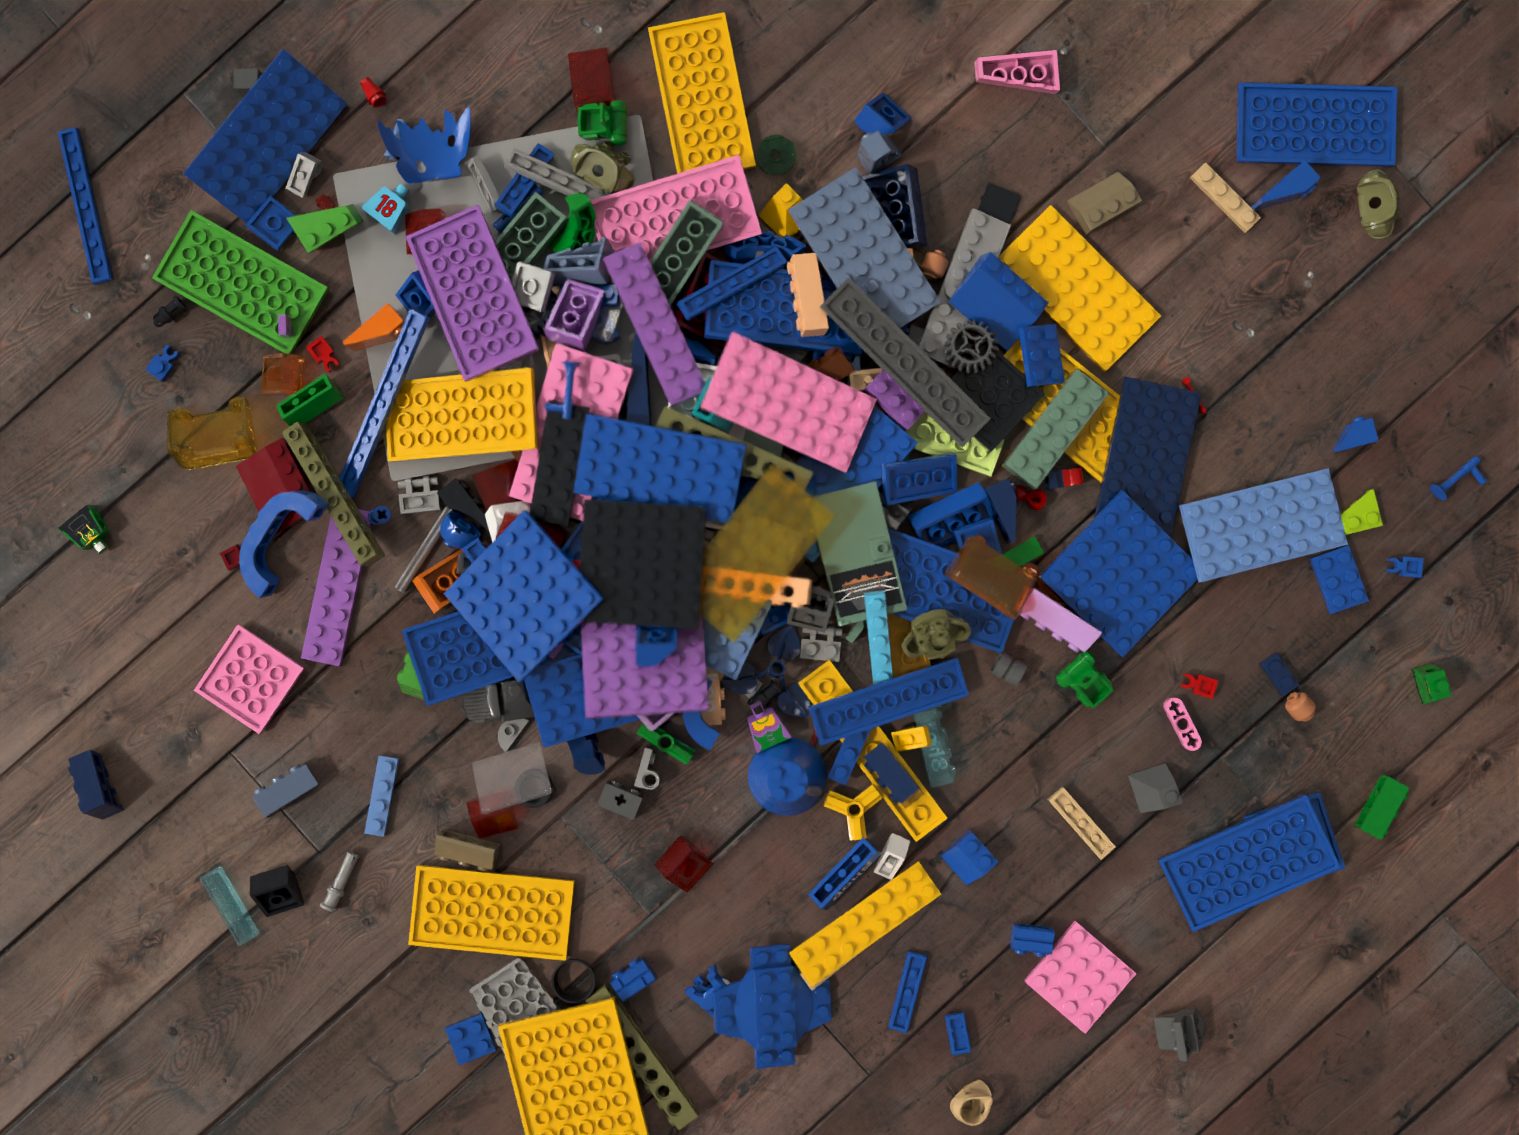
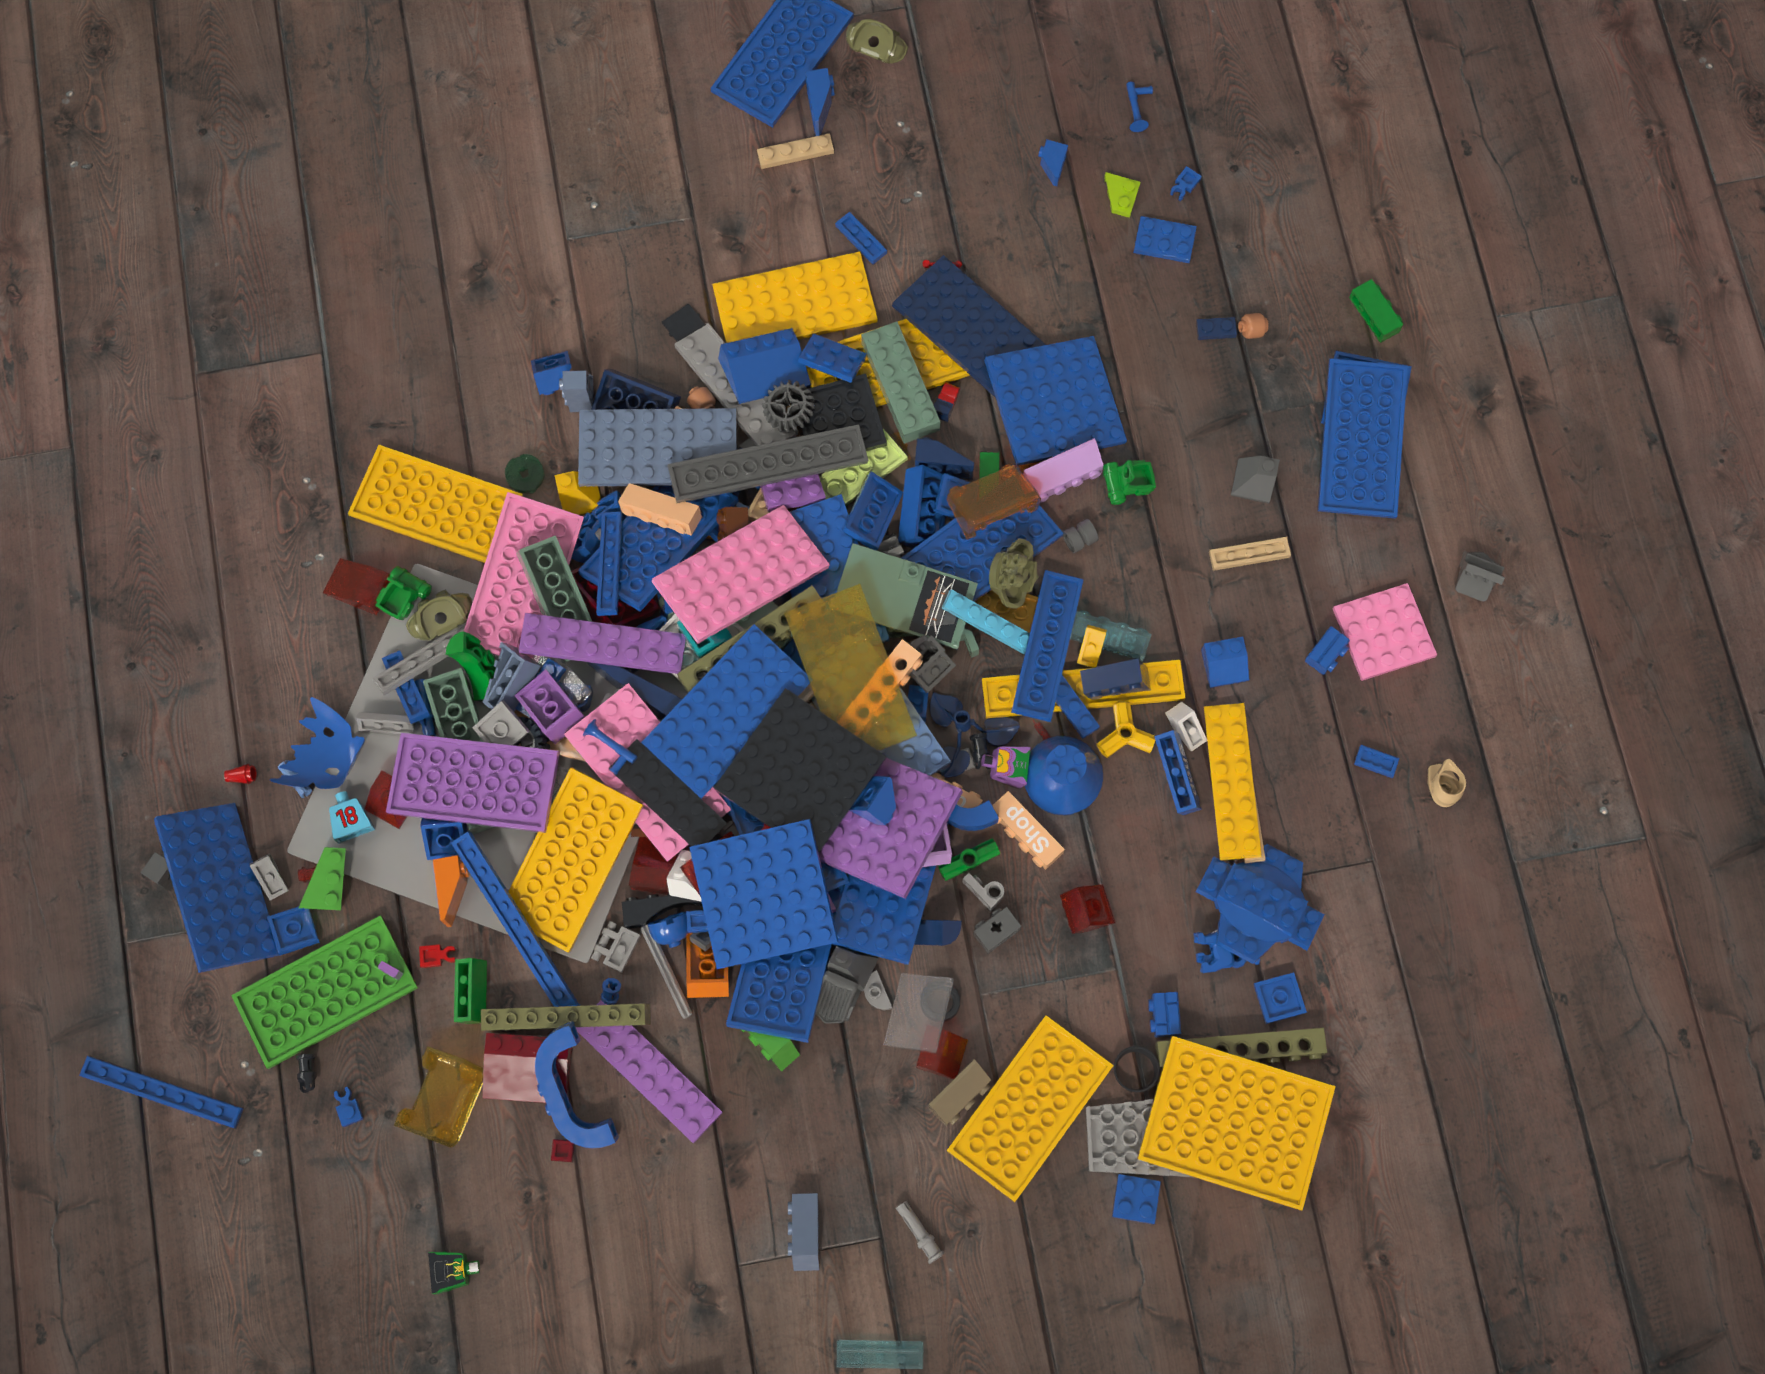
camera: 60 degrees left, 15 degrees down
(249, 679) = (682, 1202): bright pink plate -> none
(276, 891) = (892, 1297): black slope -> none
(282, 374) = (429, 1003): clear orange slope -> none
(382, 795) = (863, 1146): medium blue plate -> none
(704, 1064) = (1279, 998): none -> blue plate
(719, 776) = (1027, 830): none -> light nougat brick
(821, 649) = (967, 683): light grey plate -> none
(907, 991) = (1315, 783): blue tile -> none
(1022, 71) = (589, 242): bright pink wedge -> none
(1034, 495) = (949, 433): red plate -> none
(1104, 202) = (738, 242): dark tan slope -> none
(1175, 309) = (861, 238): none -> blue plate
(1181, 708) = (1198, 419): bright pink beam -> none
(1201, 685) = (1189, 391): red plate -> none
(1263, 525) = (1082, 270): medium blue plate -> none
(1431, 683) = (1295, 216): green torso -> none

